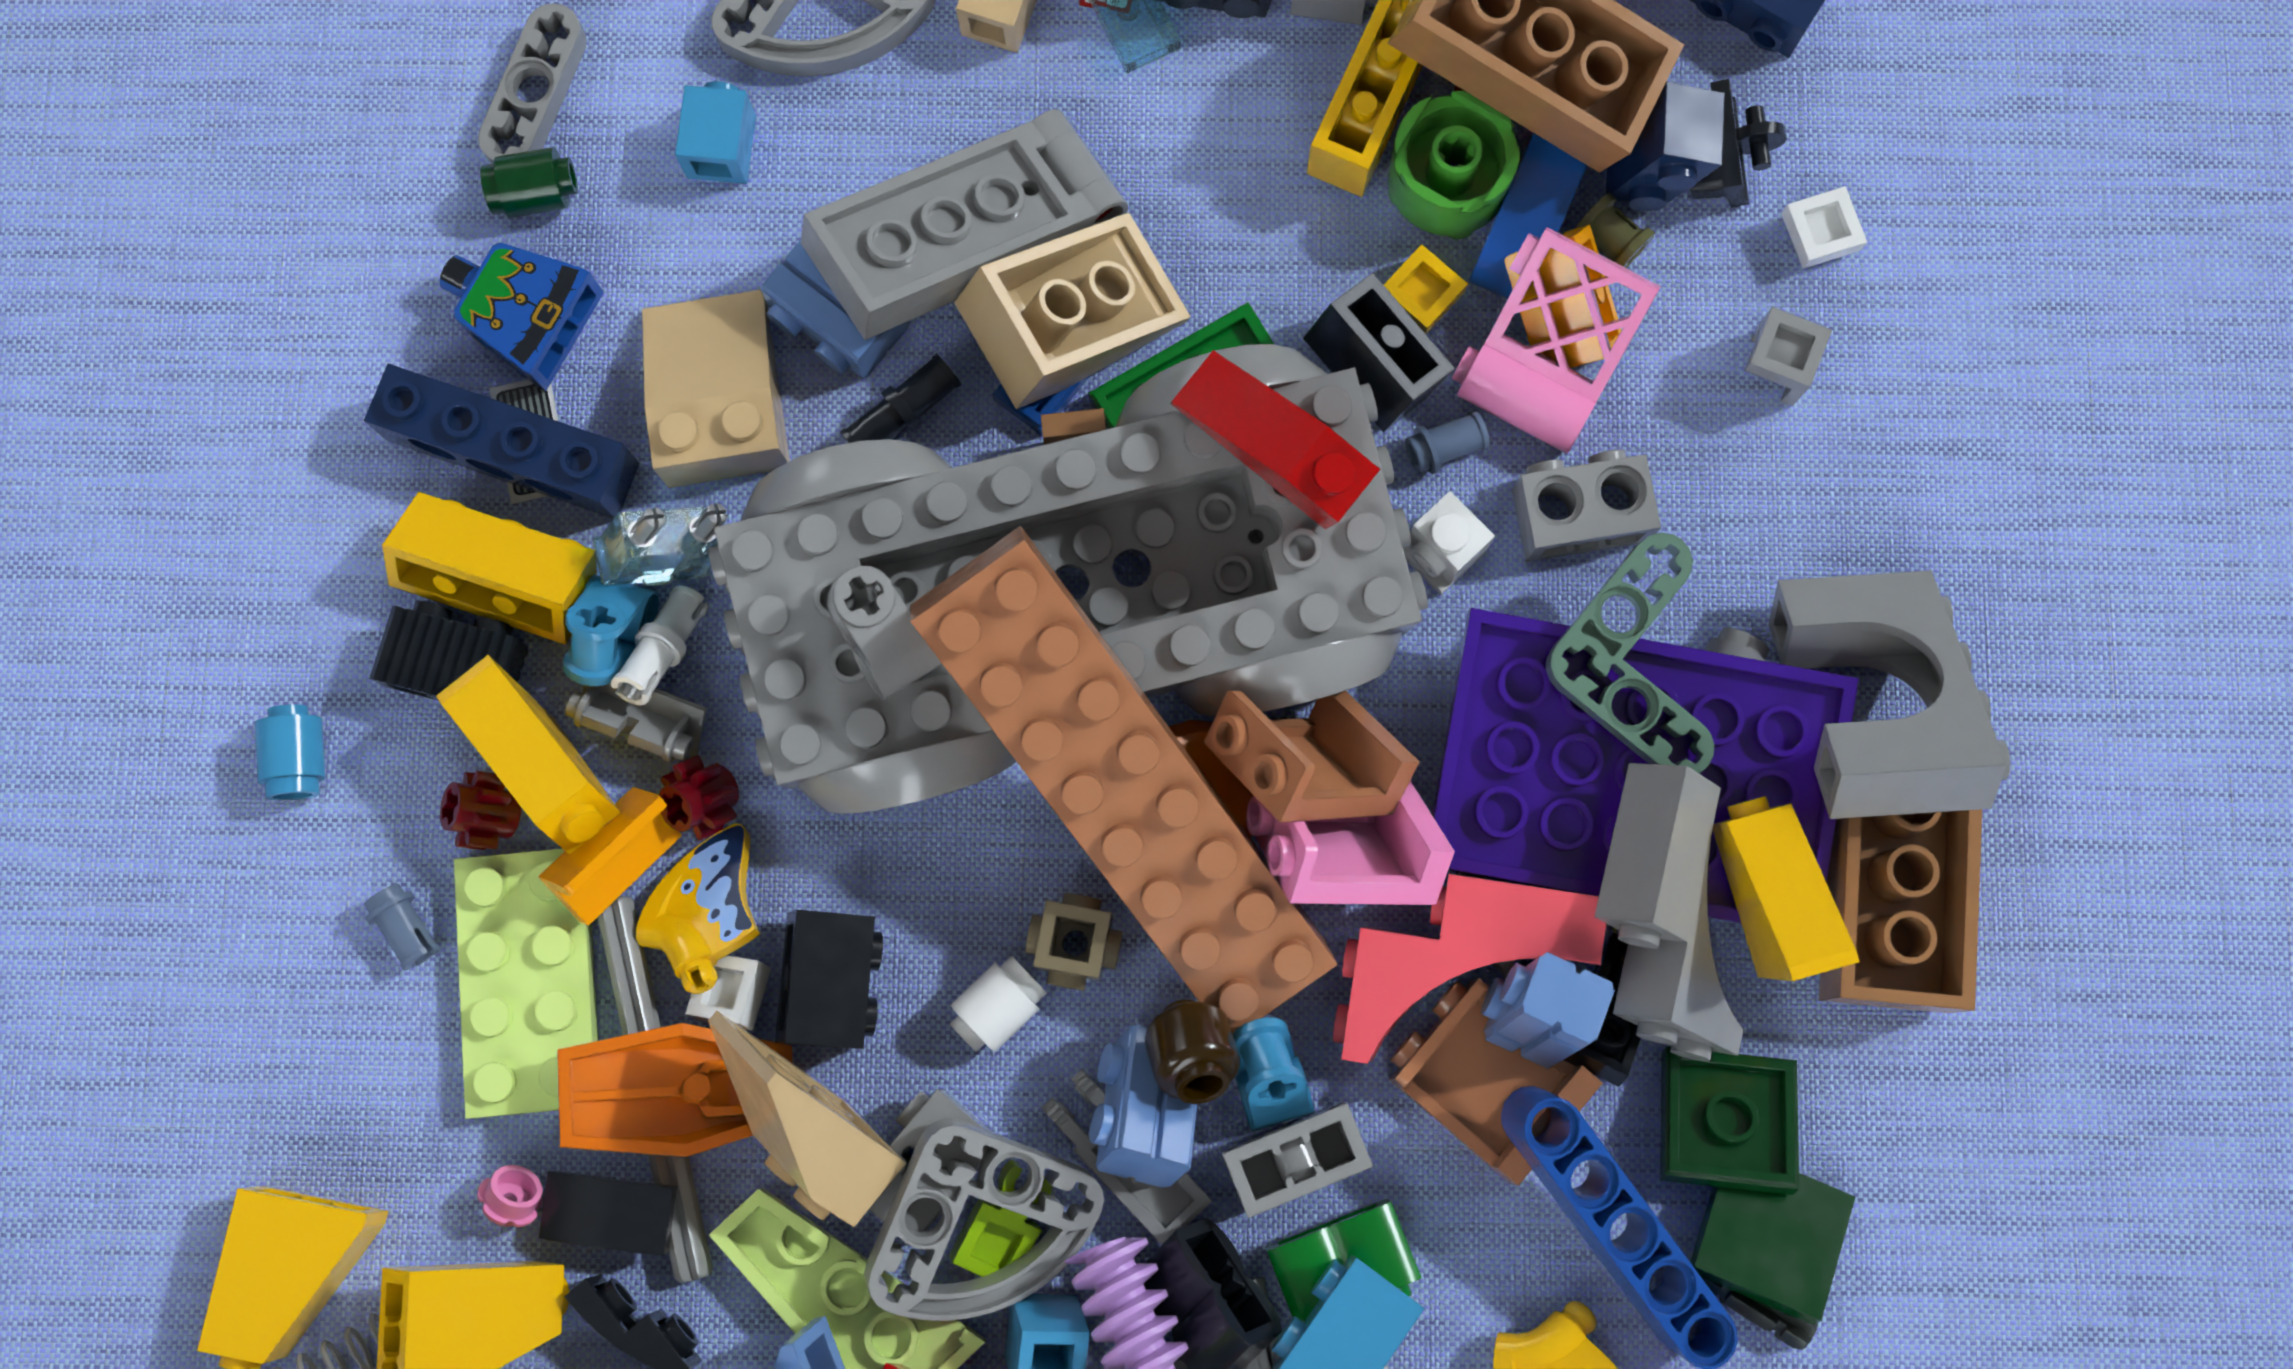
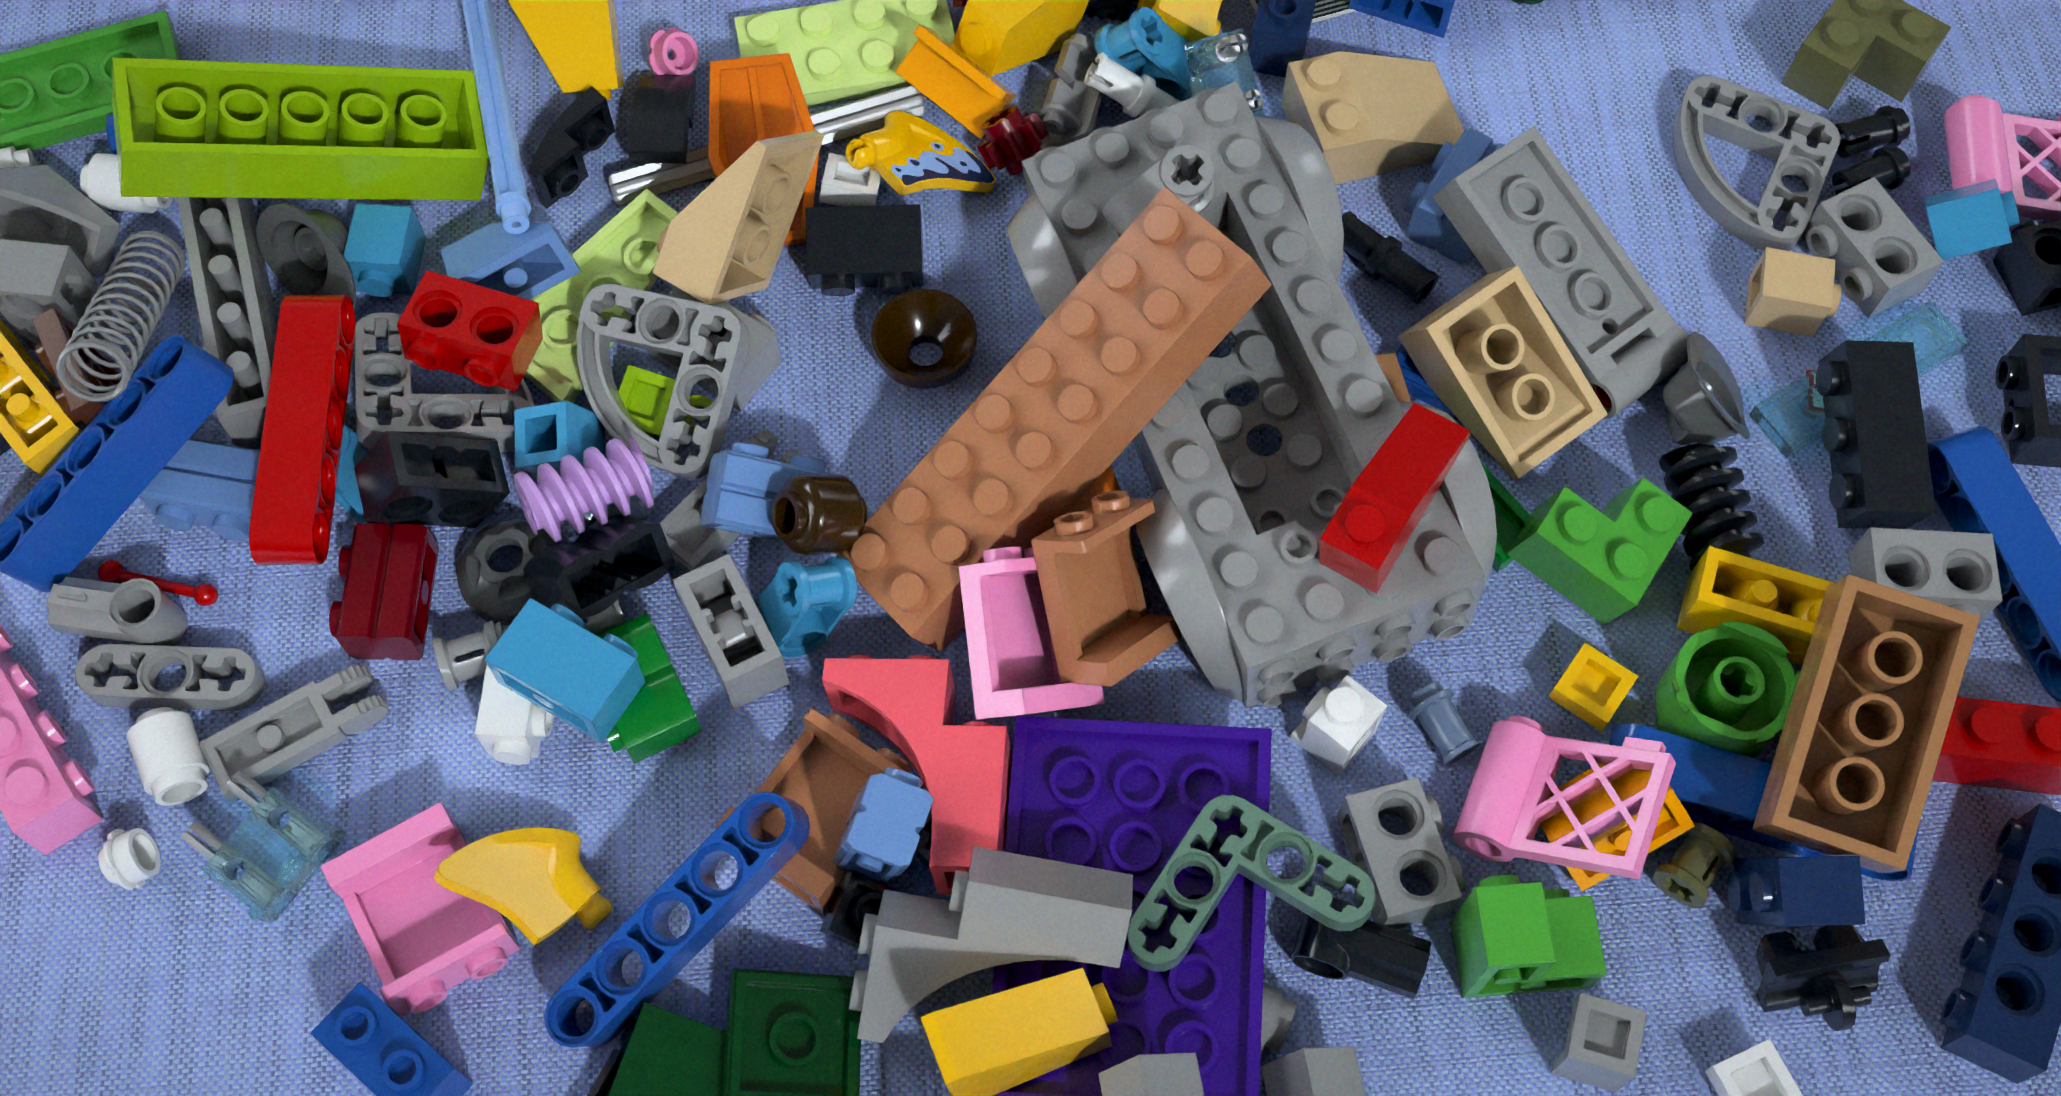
camera: 80 degrees right, 15 degrees down
(715, 133) = (1603, 90): dark azure brick -> none
(925, 901) = (923, 318): none -> dark brown piece
(996, 1005) = (855, 383): white brick -> none
(1048, 933) = (910, 426): dark tan brick -> none
(1118, 112) = (1704, 397): none -> dark grey piece
(1244, 132) = (1704, 486): none -> black piece
(1291, 242) = (1600, 557): none -> bright green brick
(1385, 346) = (1517, 639): black brick -> none
(1687, 404) = (1525, 940): none -> bright green brick
(1695, 523) = (1366, 954): none -> black piece

